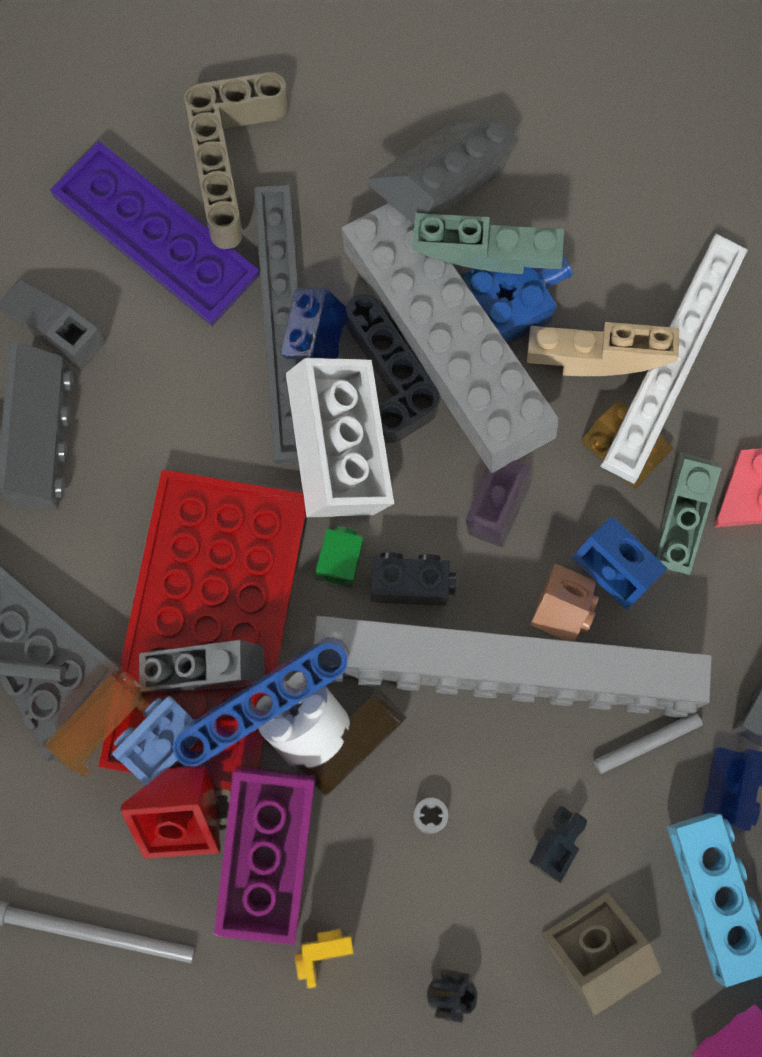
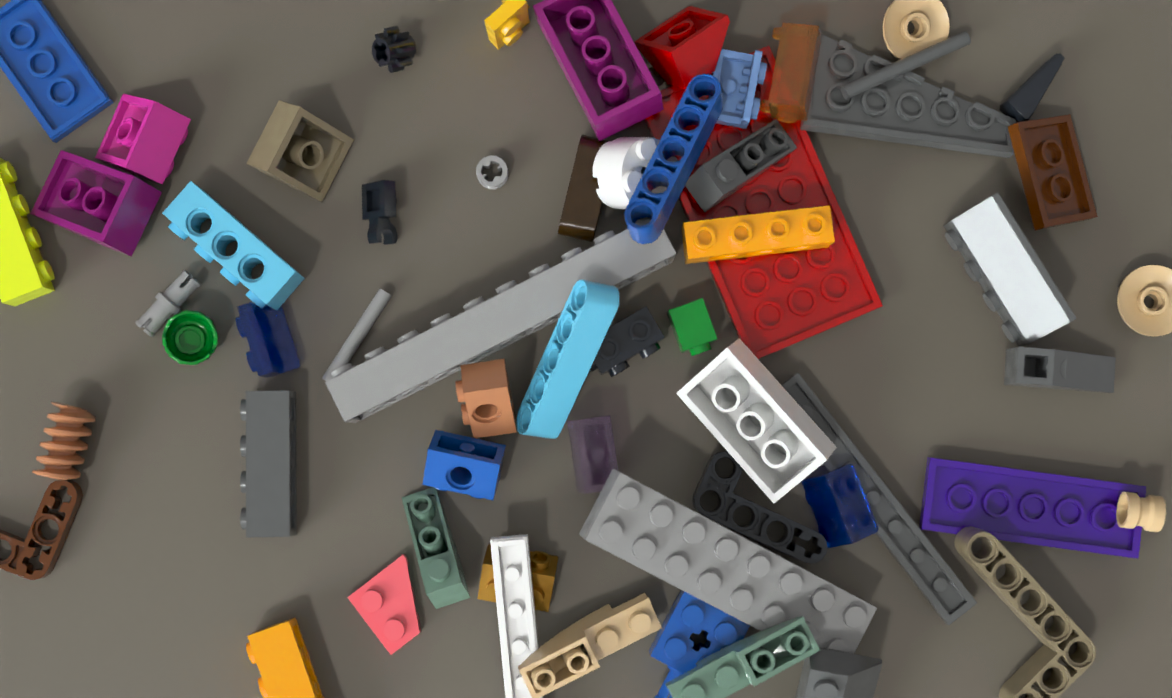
camera: 155 degrees right, 10 degrees up
(69, 167) = (1140, 511): none -> tan wheel
(230, 593) = (757, 234): none -> light orange brick
(472, 589) = (567, 359): none -> medium azure beam

